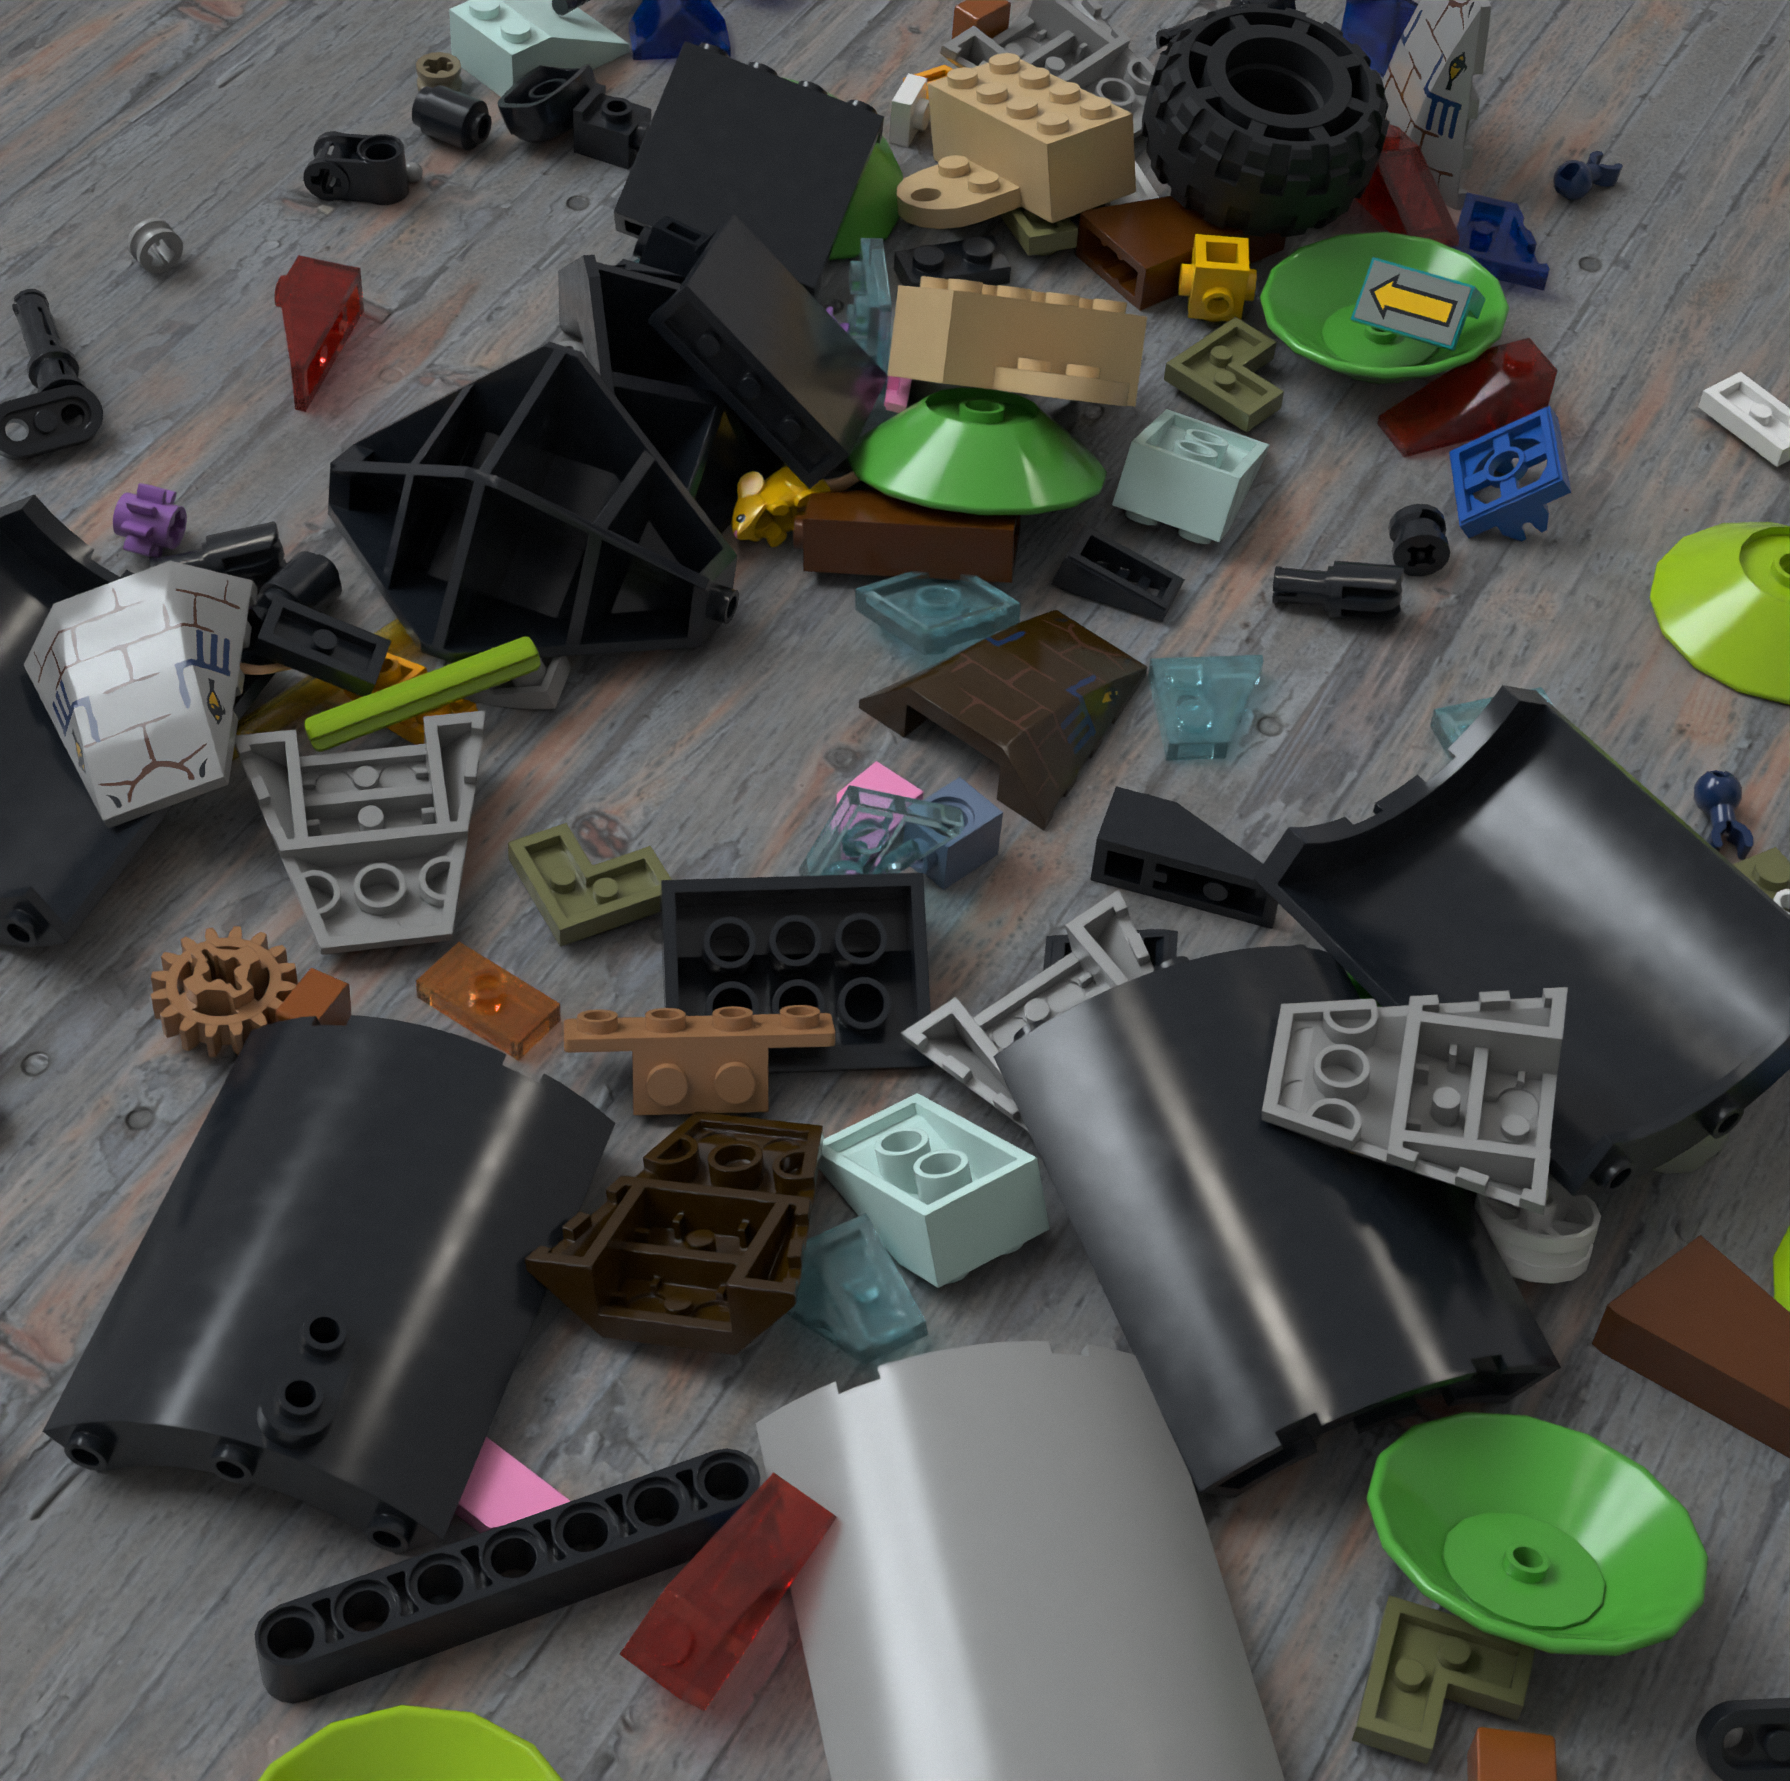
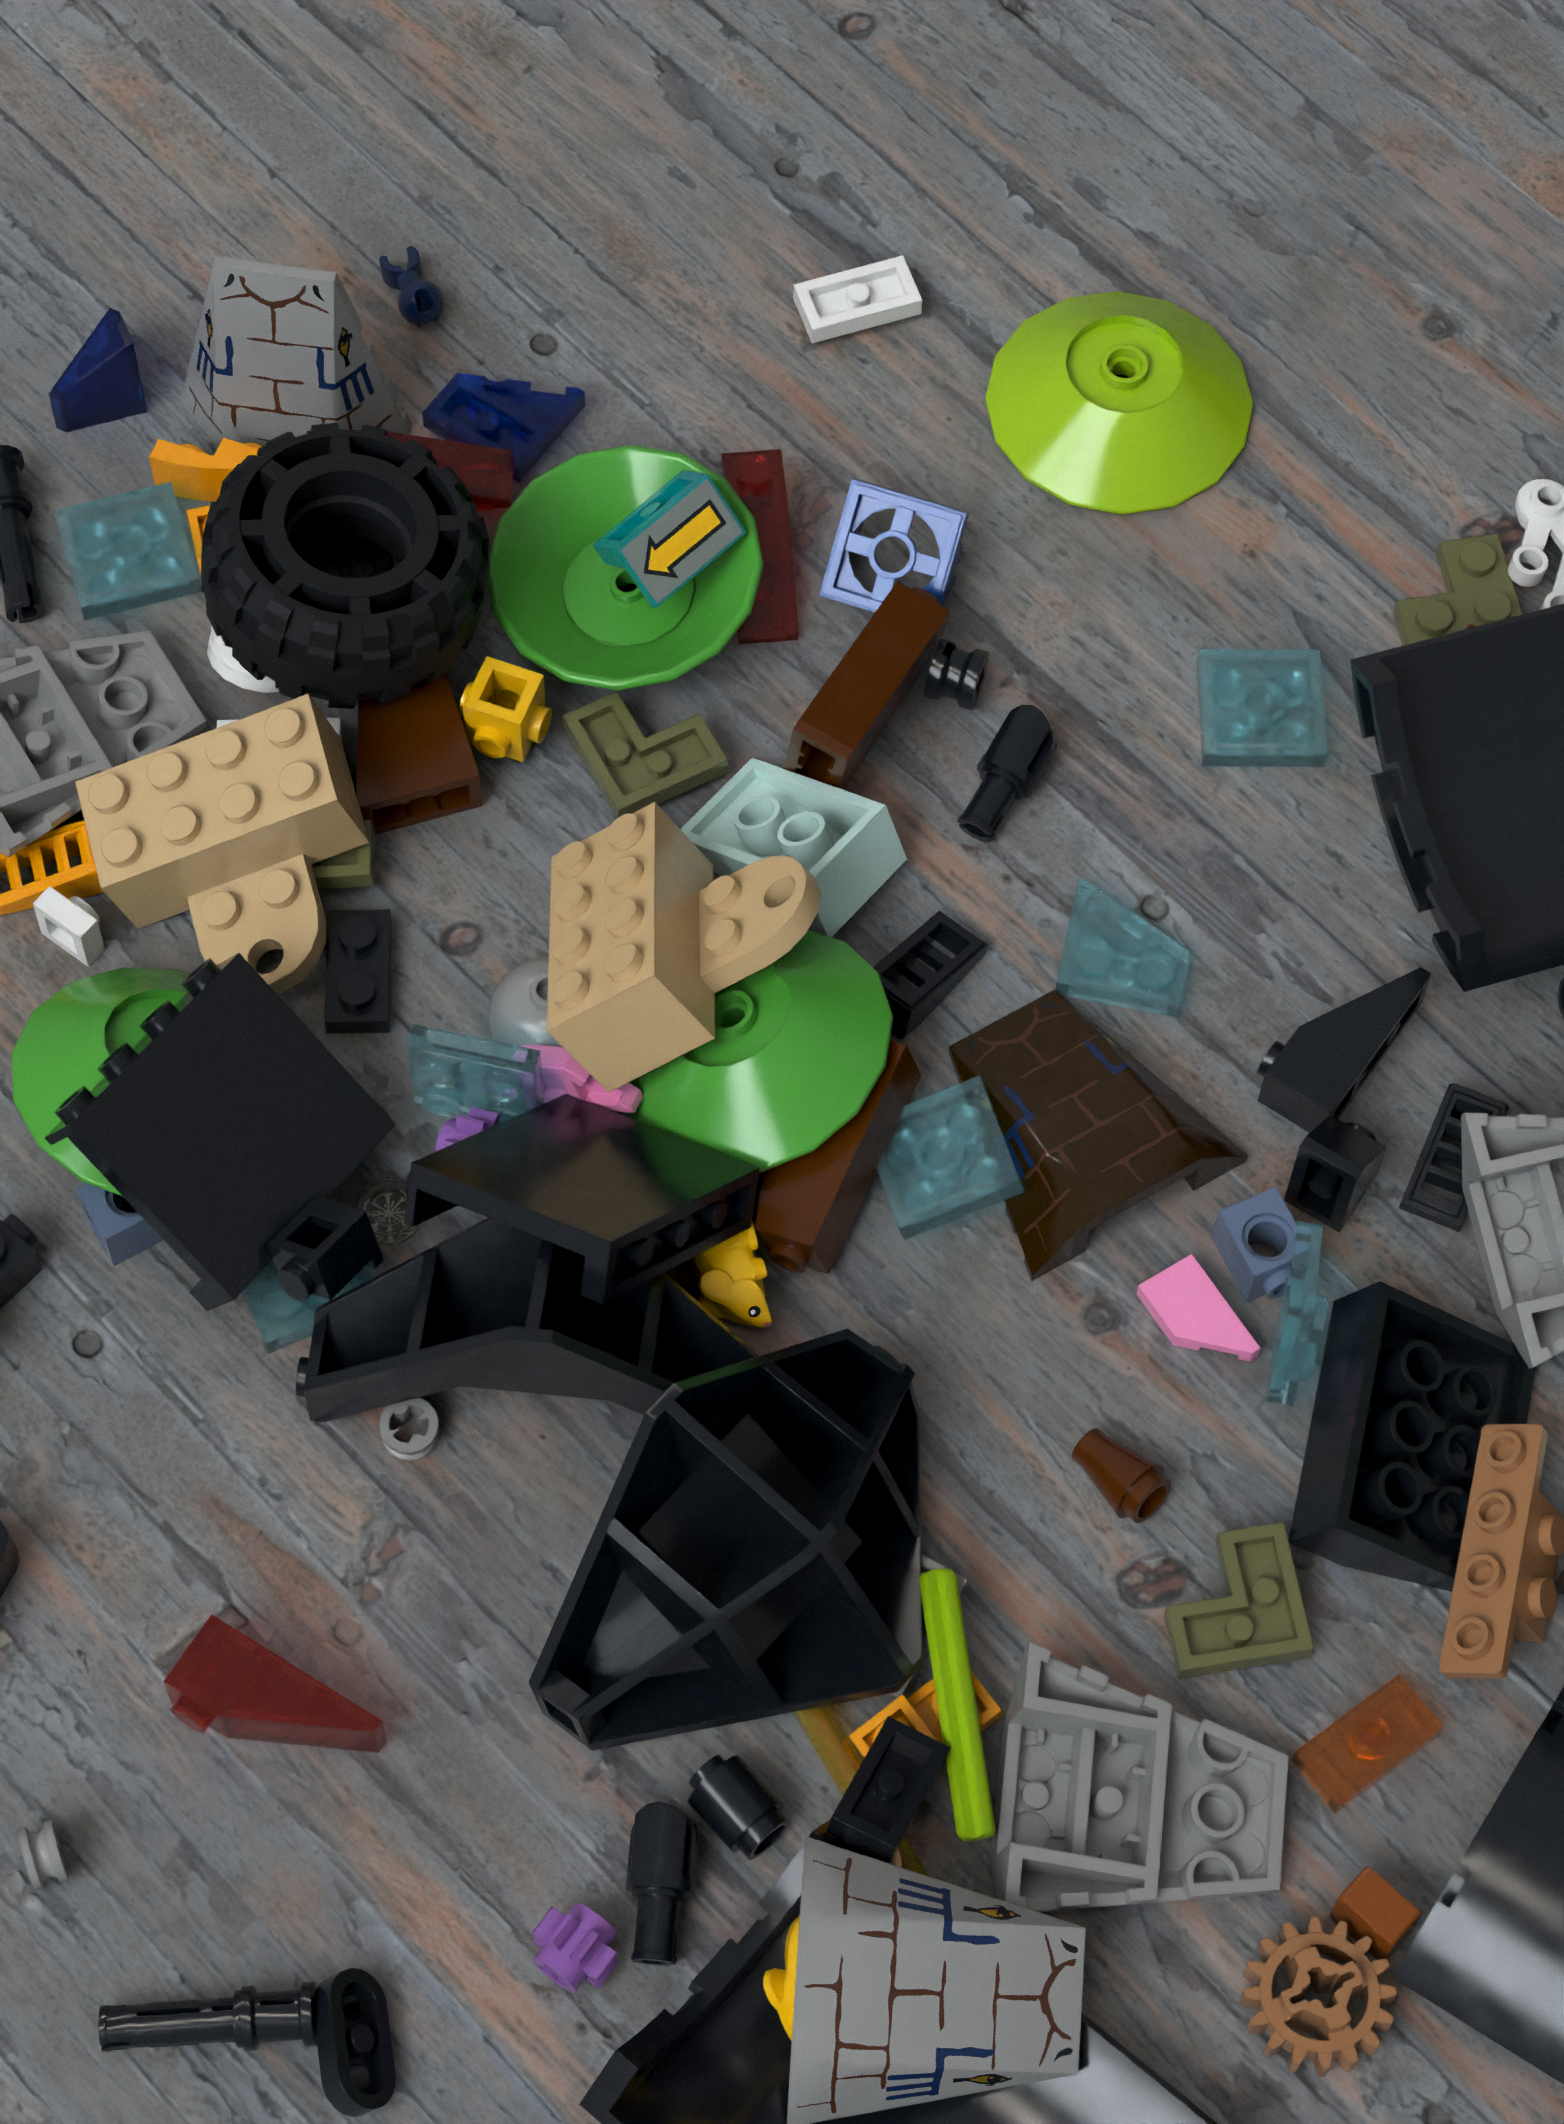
camera: 70 degrees left, 15 degrees up
(681, 784) = (1124, 1477): none -> reddish brown cone
(1048, 858) = (1334, 1171): none -> black slope
(1352, 467) = (866, 687): none -> reddish brown slope
(1718, 796) = (1364, 560): dark blue arm -> none

